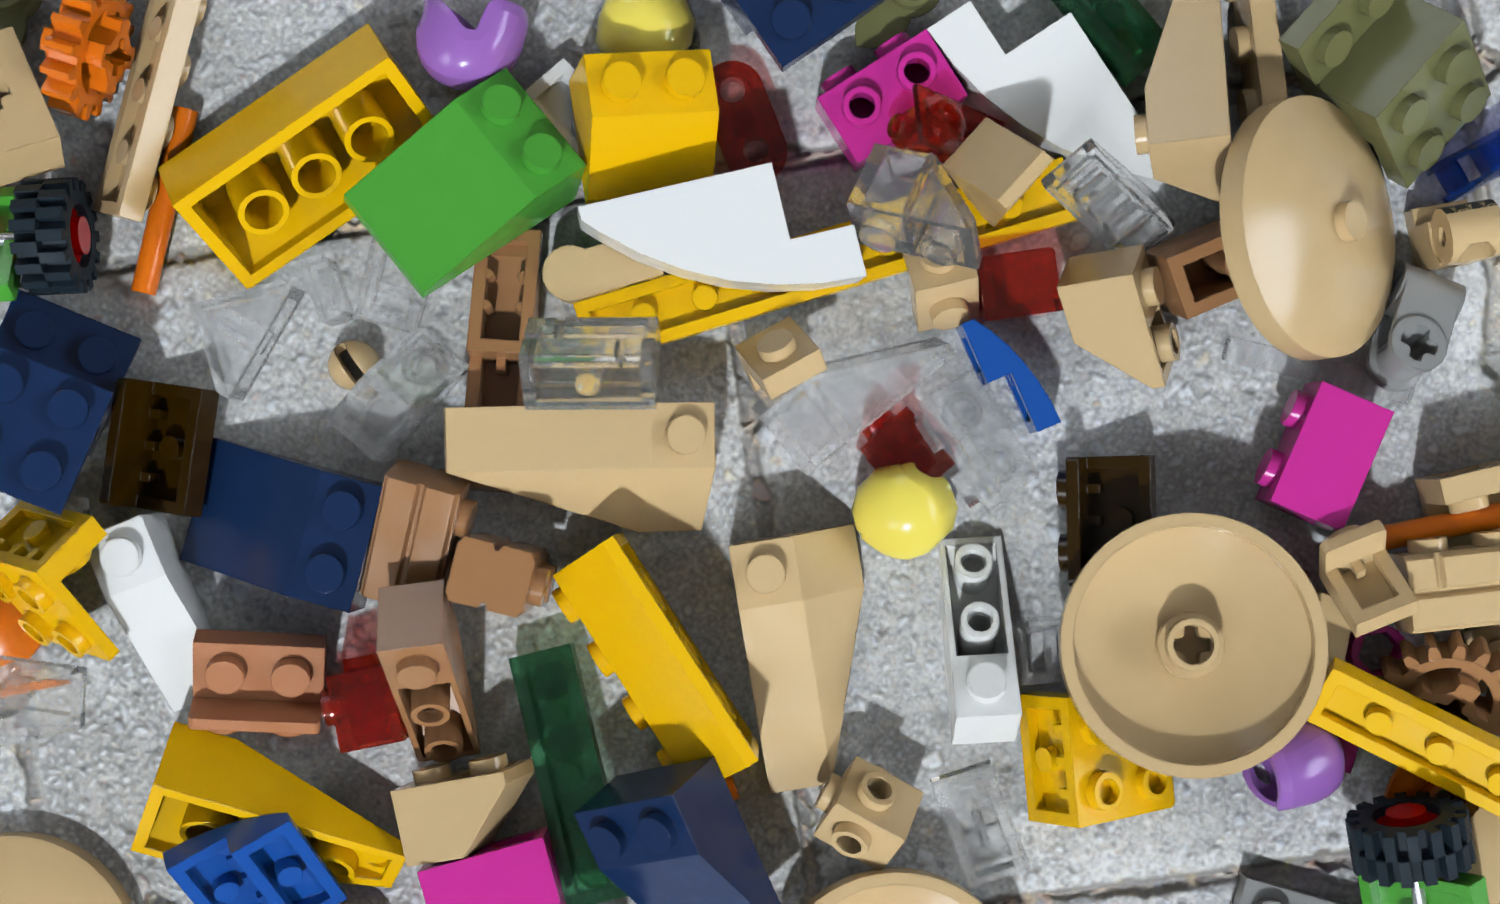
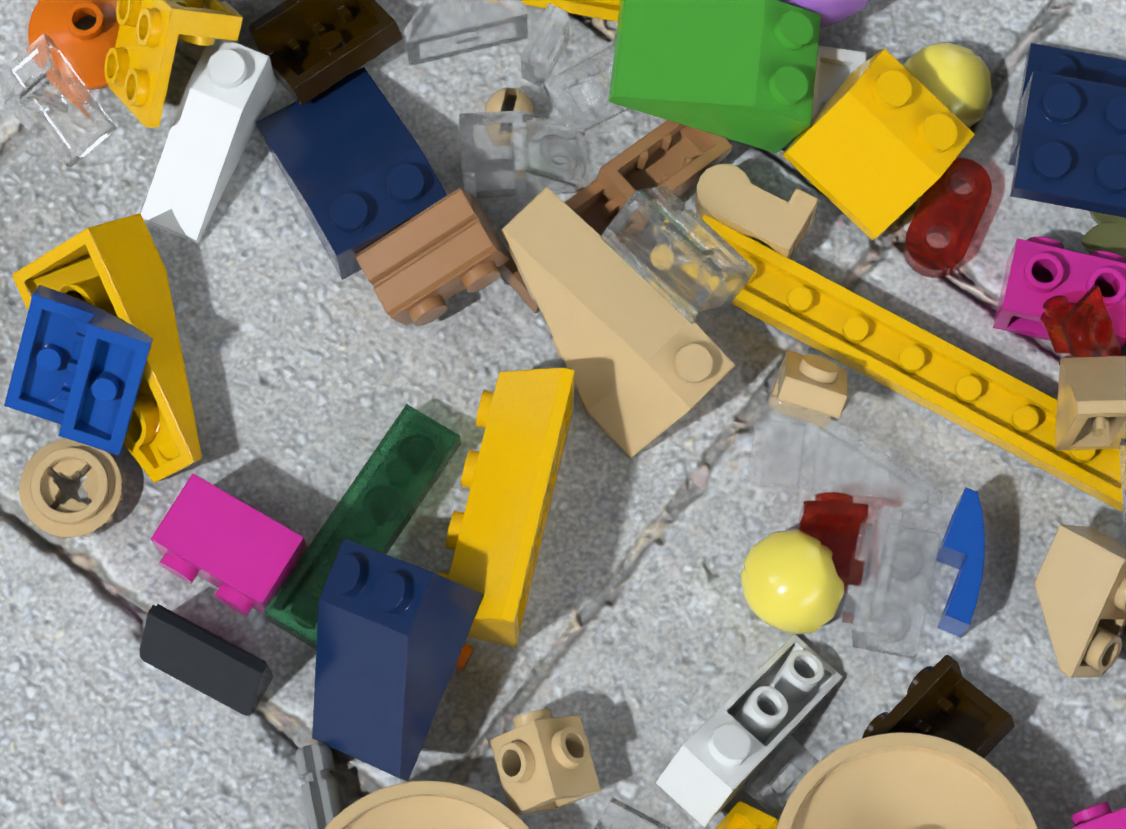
camera: 45 degrees right, 15 degrees down
(257, 682) = (223, 247): nougat bracket -> none
(362, 705) = (278, 337): clear red brick -> none
(427, 670) = (344, 350): medium nougat slope -> none
(457, 812) = (266, 466): tan slope -> none
(500, 574) = (464, 333): medium nougat brick -> none
(725, 234) = (858, 261): white slope -> none
(799, 632) = (628, 592): tan wedge -> none
(913, 208) = (1008, 368): clear slope -> none
(942, 294) = (981, 448): tan bracket -> none
(1018, 286) = (1030, 507): clear red panel -> none

